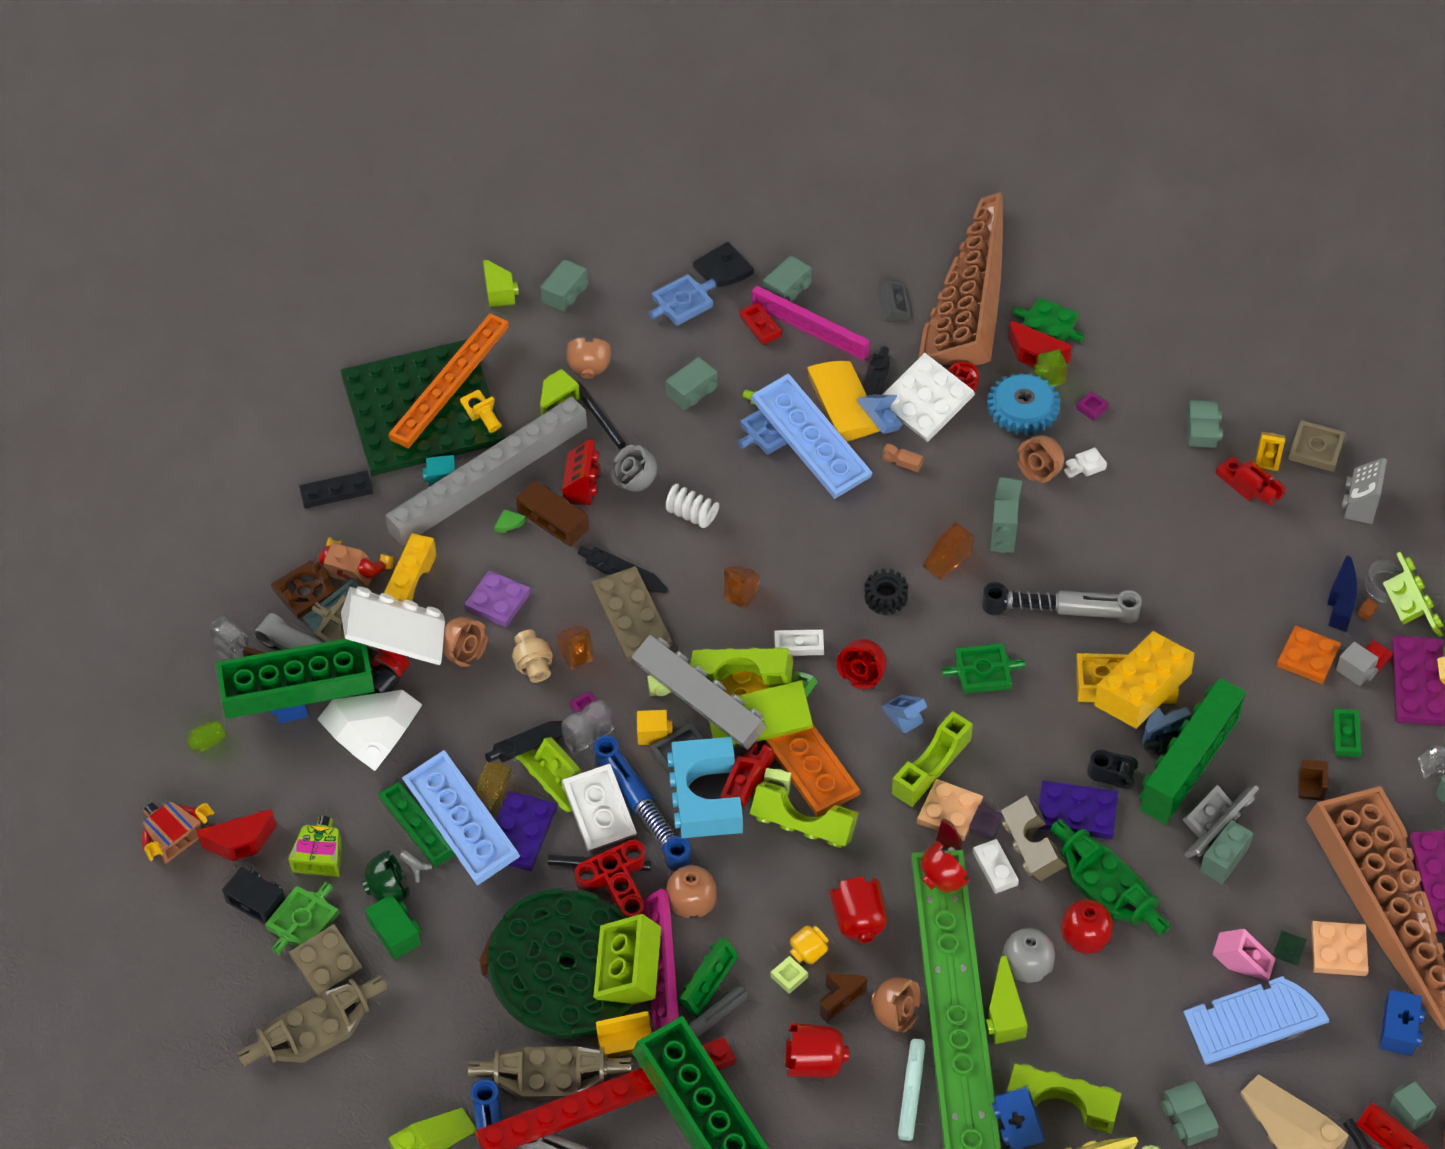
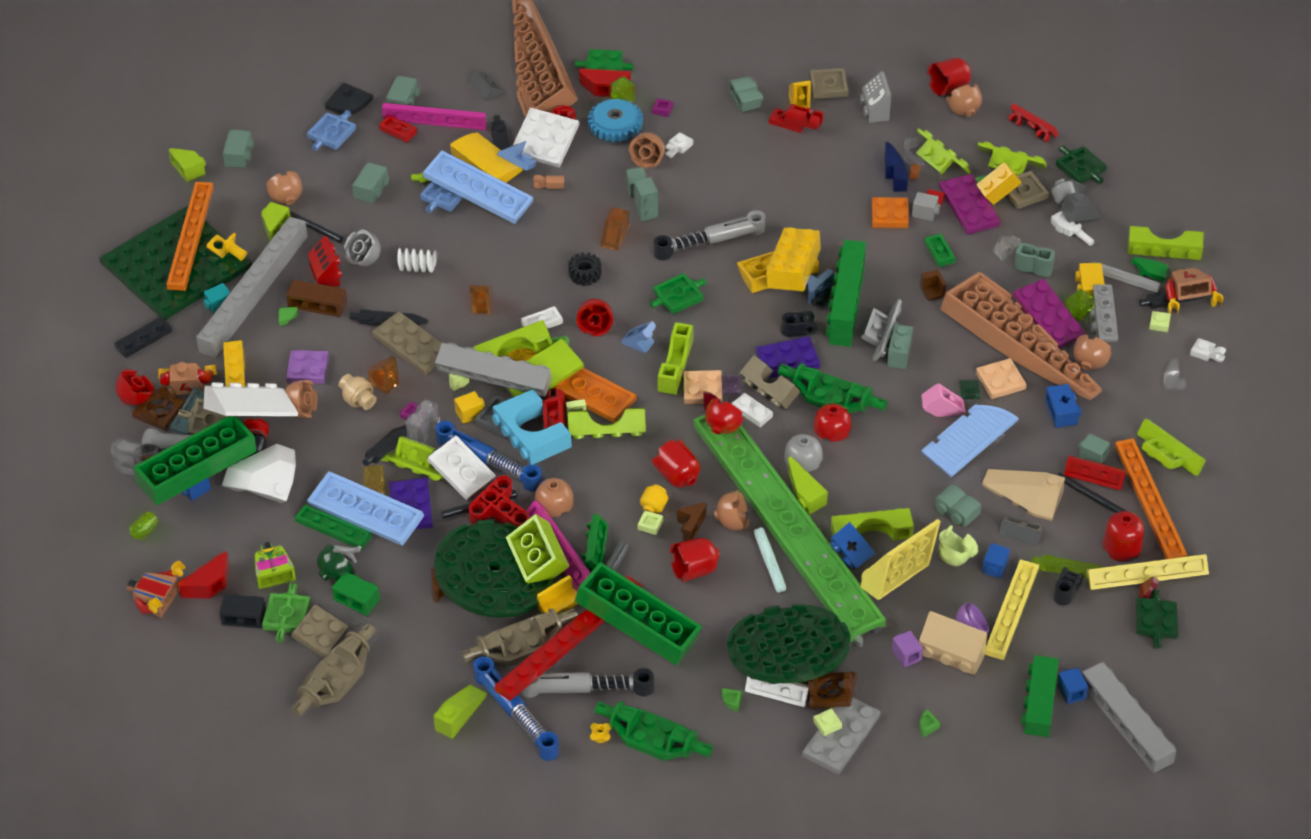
camera: 25 degrees left, 5 degrees down
(285, 552) = (132, 388): none -> red cylinder

